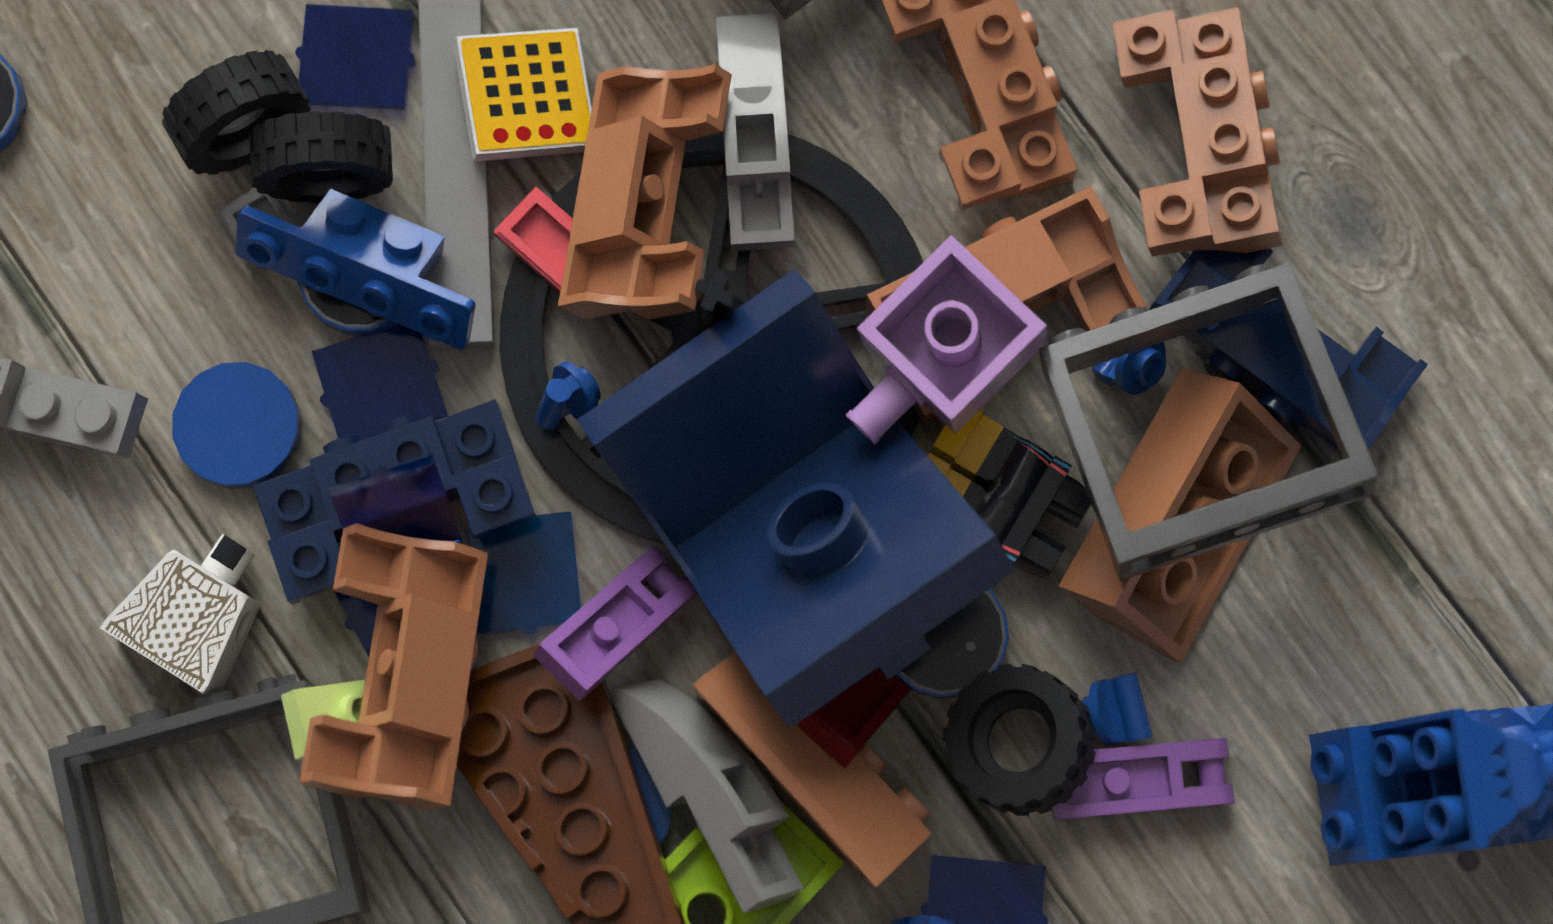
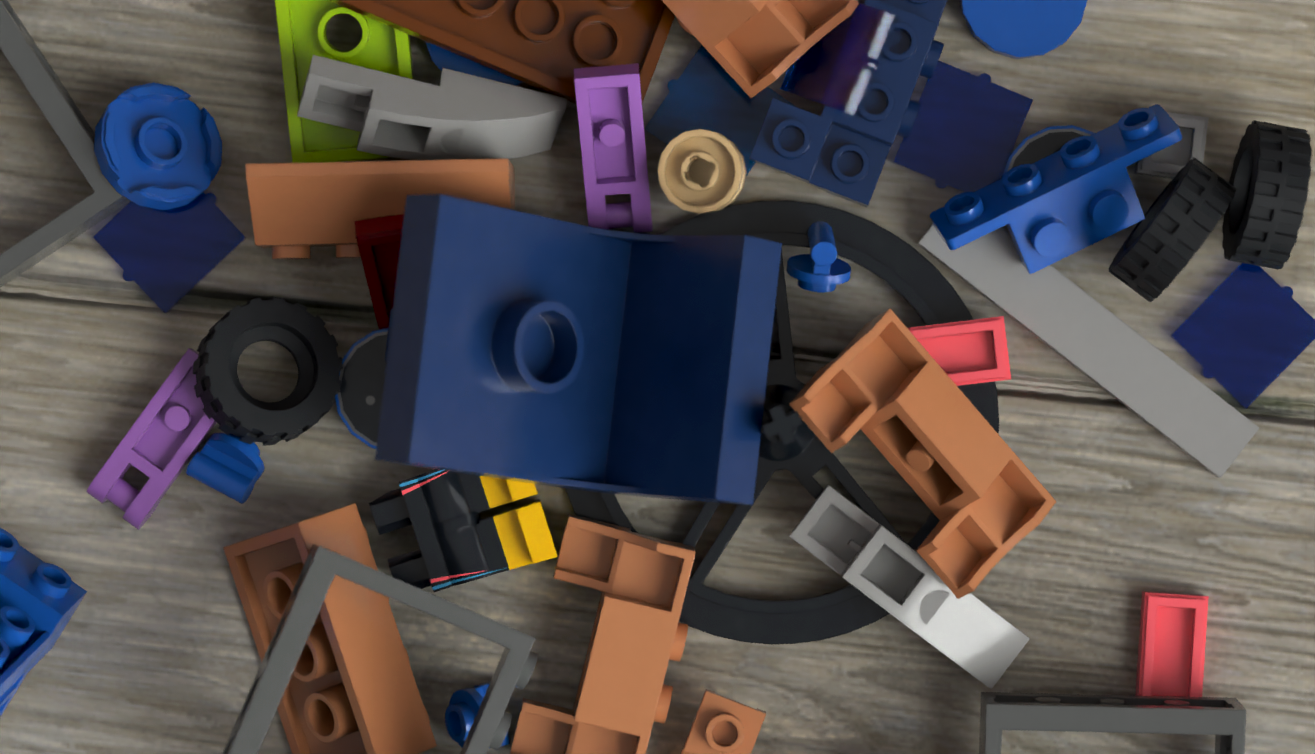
camera: 130 degrees right, 10 degrees up
(523, 93) = (1096, 435): yellow tile -> none
(576, 540) = (702, 171): none -> tan wheel
(945, 342) = (599, 567): lavender brick -> none

